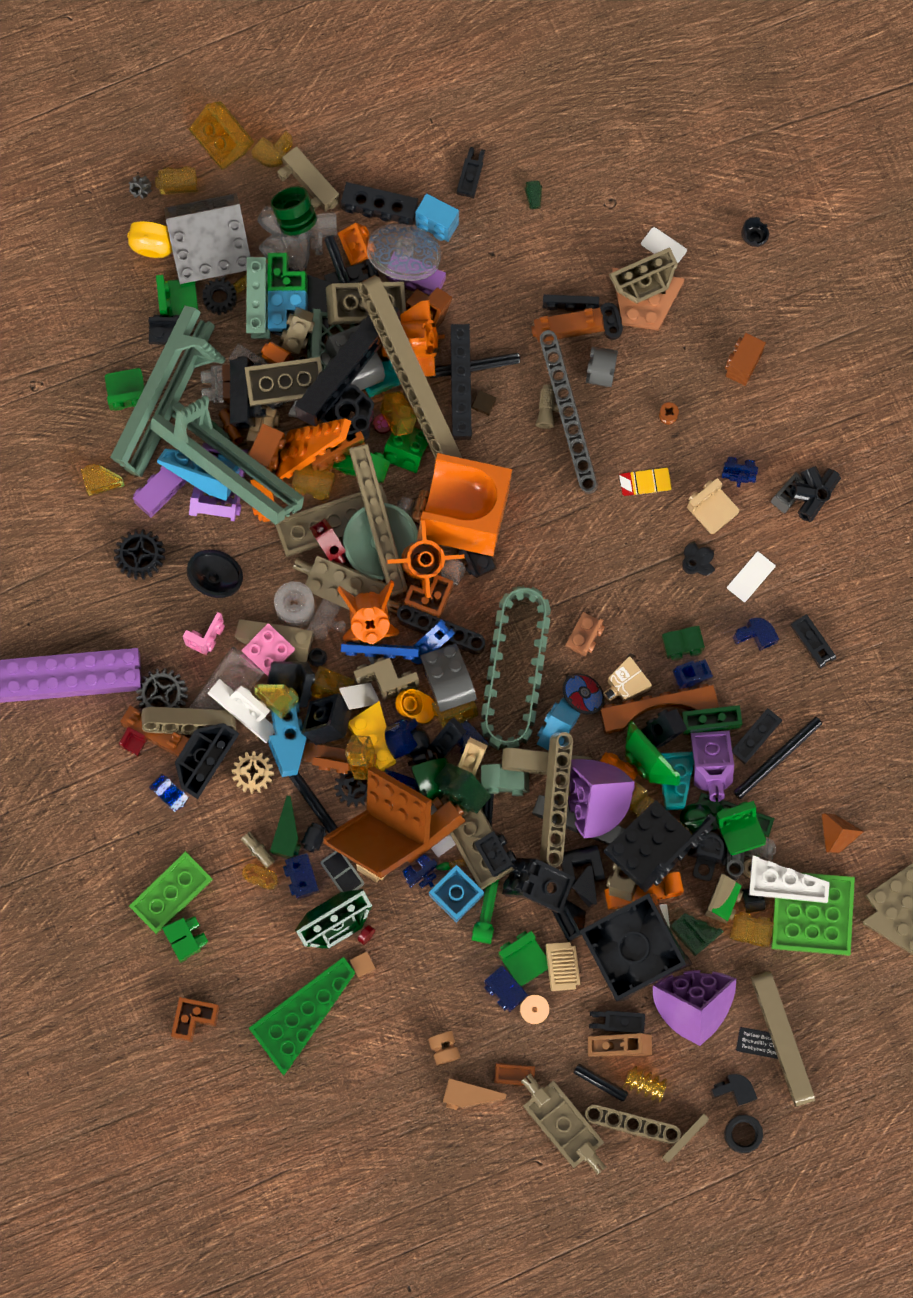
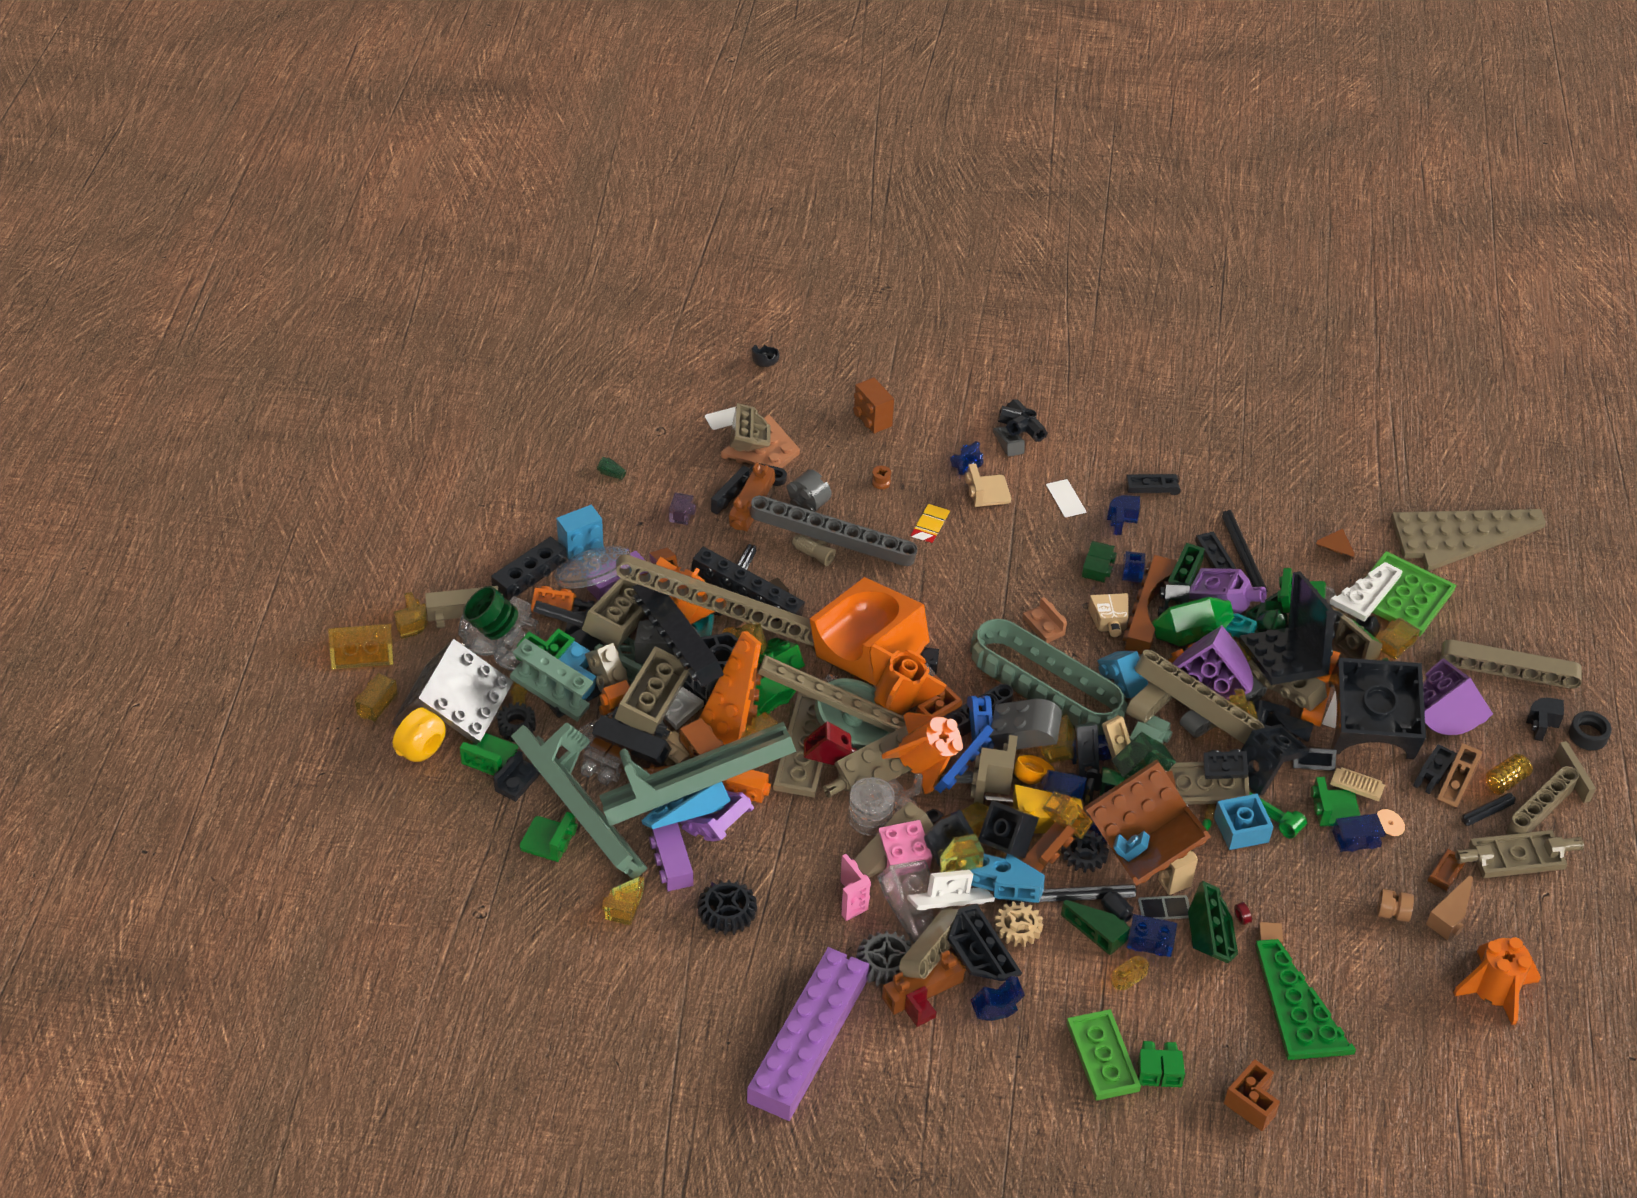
camera: 60 degrees left, 30 degrees down
(140, 186) = (358, 731): dark grey gear -> none
(214, 573) = (794, 853): black dish -> none
(258, 850) = (1101, 959): dark tan pin -> none
(365, 819) = (1132, 847): none -> dark azure bracket
(417, 1168) = (1501, 974): none -> orange brick
(420, 506) = (840, 672): medium nougat axle -> none
(427, 866) = (1212, 844): clear blue hips -> none
(470, 174) = (555, 498): black hinge -> none
(524, 277) = (681, 508): none -> clear purple brick
(571, 839) = (1240, 701): none -> clear yellow plate
(583, 693) = (1102, 646): shield -> none
(700, 558) = (1028, 521): black plate -> none
(755, 1043) = (1503, 688): black sticker -> none

